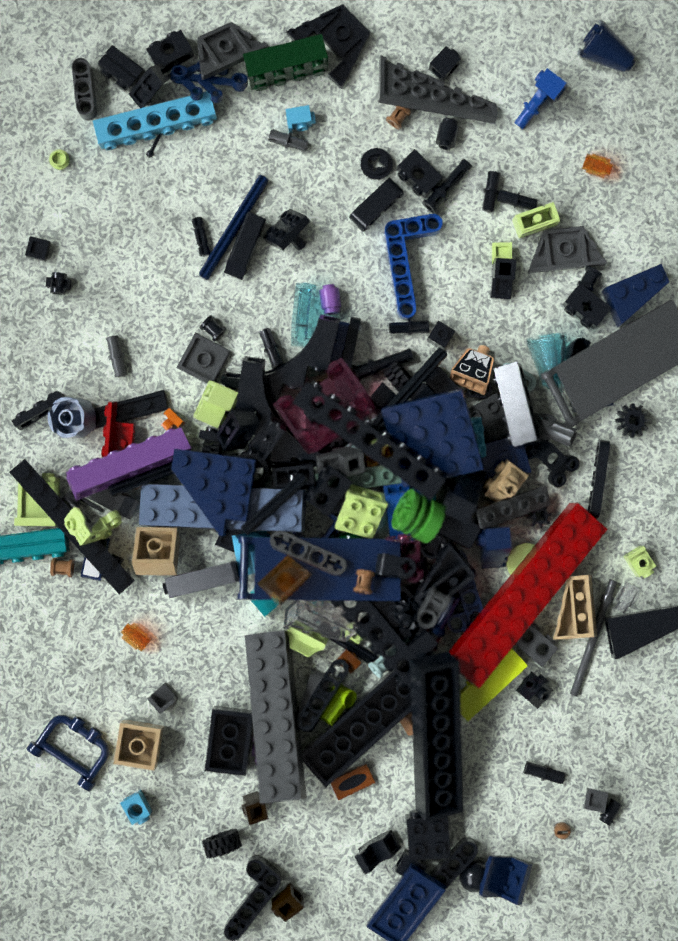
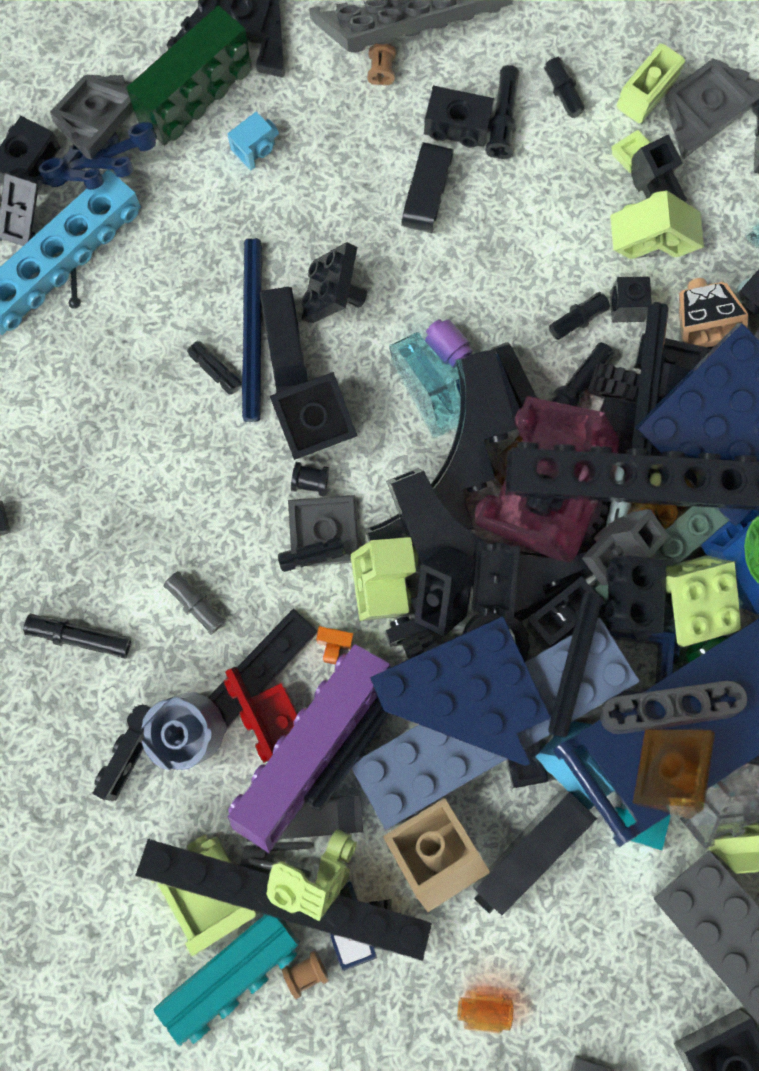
camera: 30 degrees left, 10 degrees down
(42, 330) = (63, 632): none -> black pin
(58, 283) = (46, 550): black gear -> none
(188, 368) = (311, 554): none -> black axle
(233, 297) = (313, 415): none -> black brick
(271, 348) = (408, 455): black axle -> none
(288, 140) = (256, 176): dark grey axle -> none
(371, 156) = (400, 129): black gear -> none
(402, 259) = (512, 234): blue beam -> none
(447, 133) = (460, 50): black brick -> none
(482, 305) = (656, 224): none -> yellowish green brick
(517, 200) = (604, 78): black axle -> none

